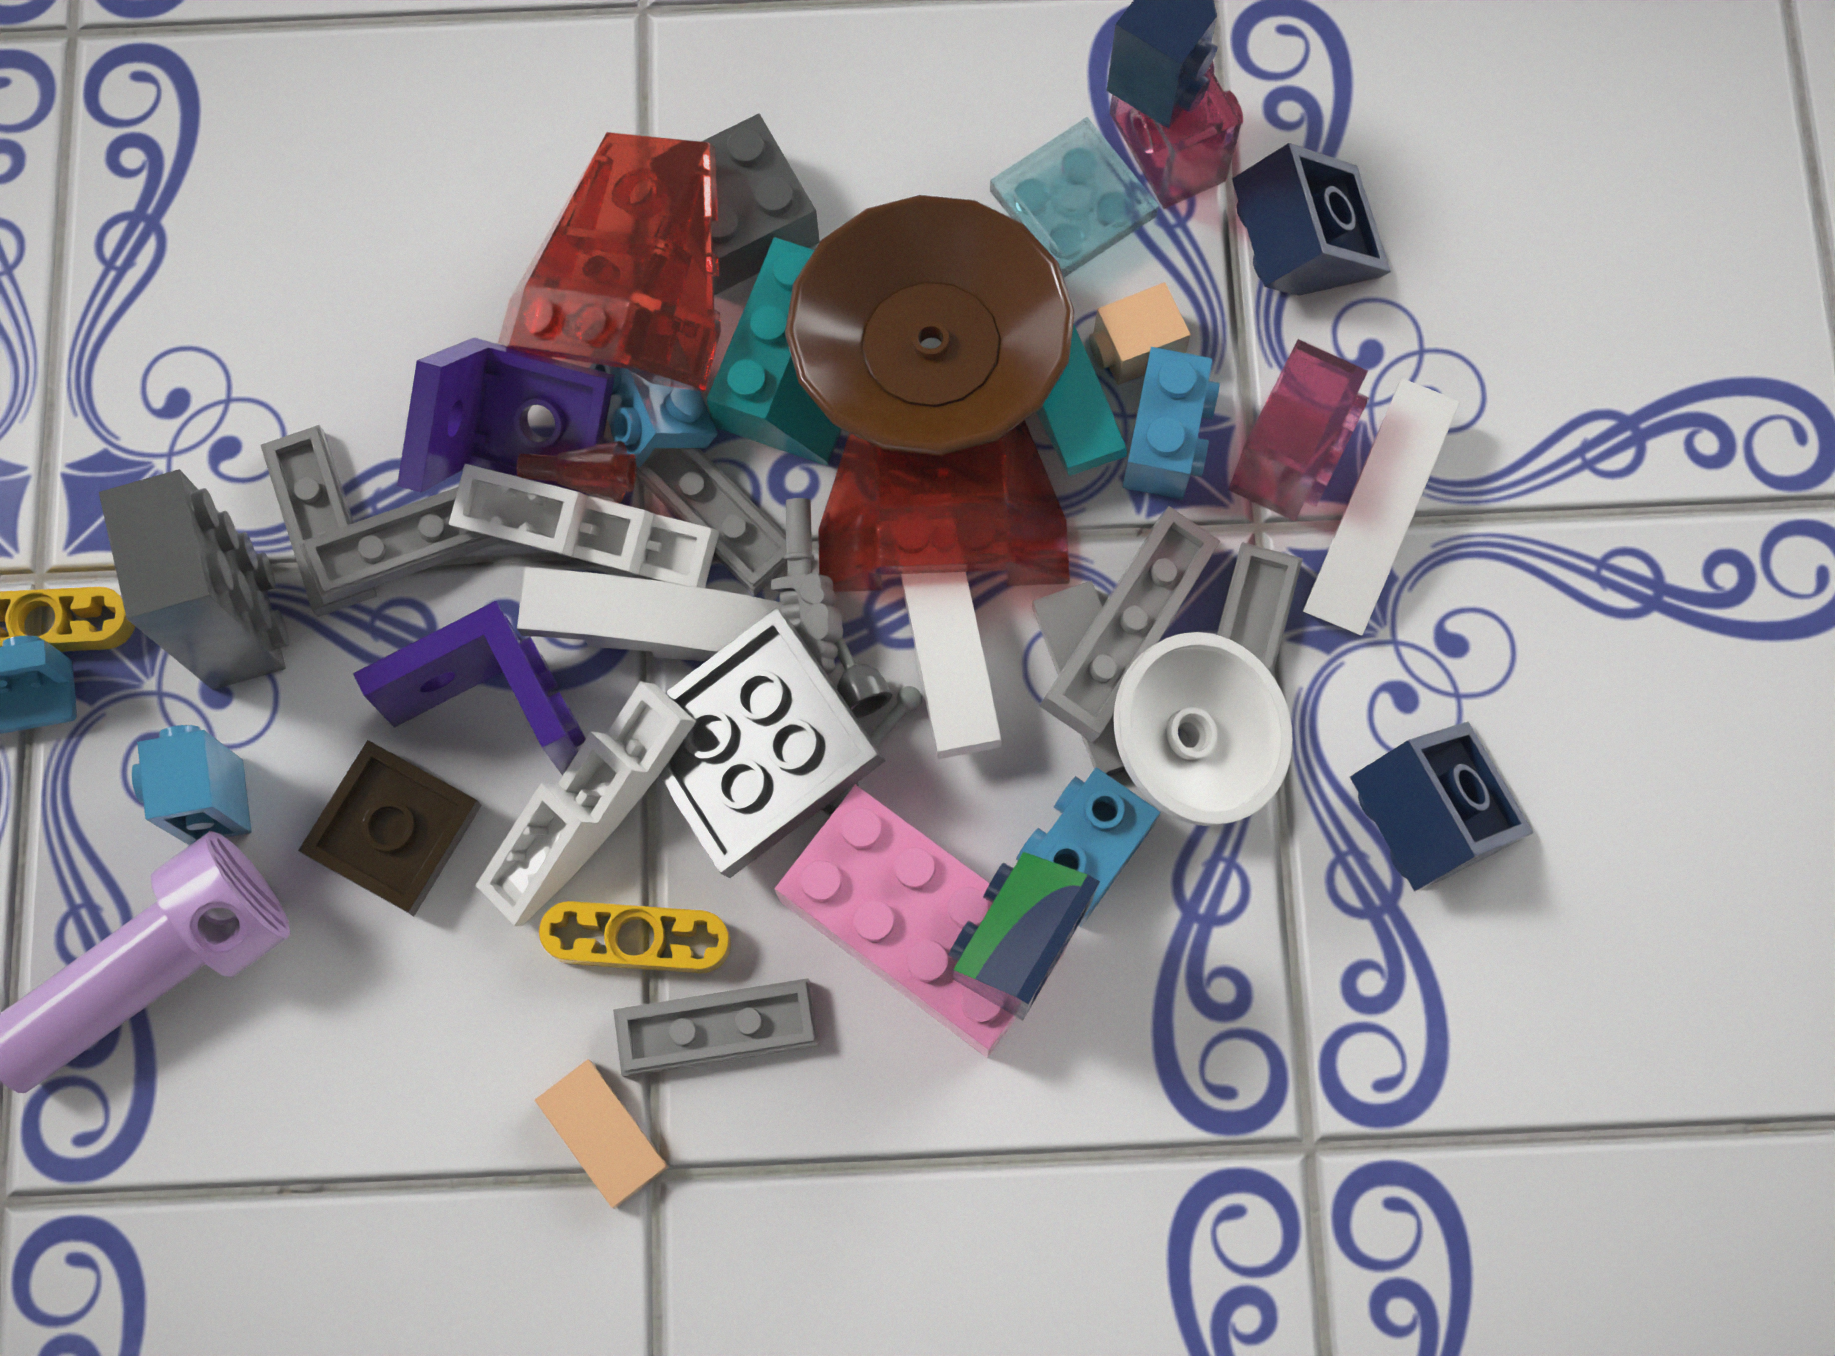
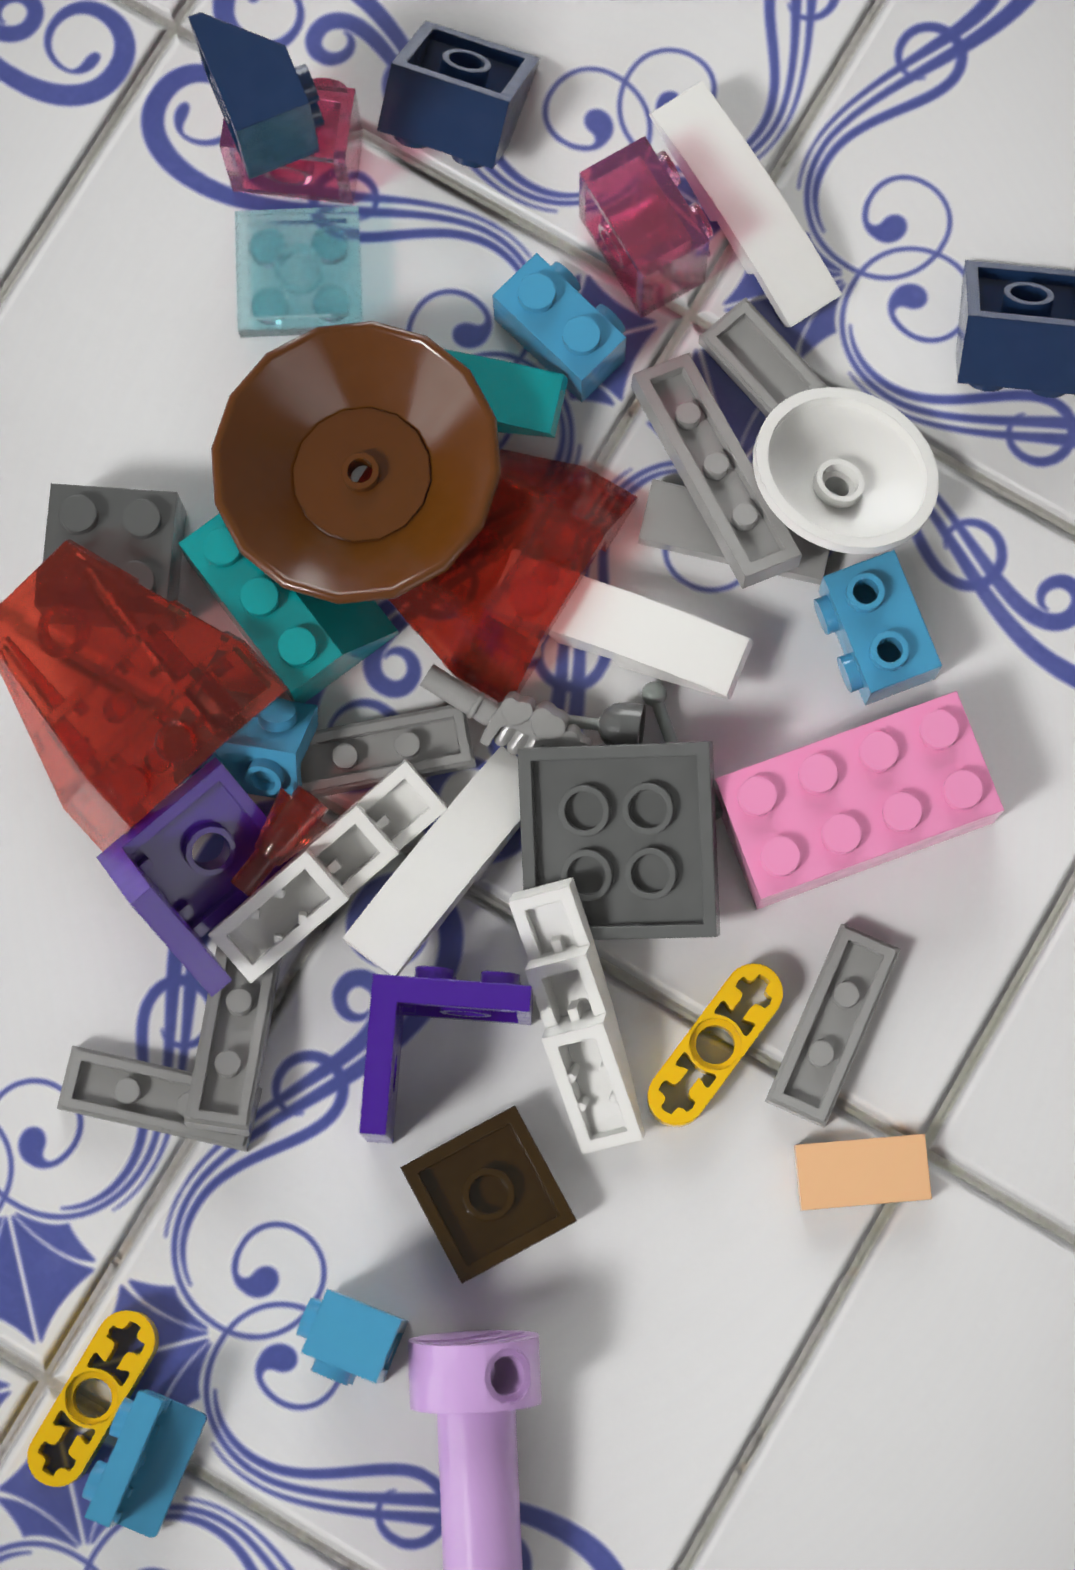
camera: 55 degrees left, 5 degrees up
(193, 580) = (175, 1215): dark grey brick -> none
(1023, 931) = (942, 715): dark blue slope -> none
(1132, 326) = (461, 298): light nougat brick -> none

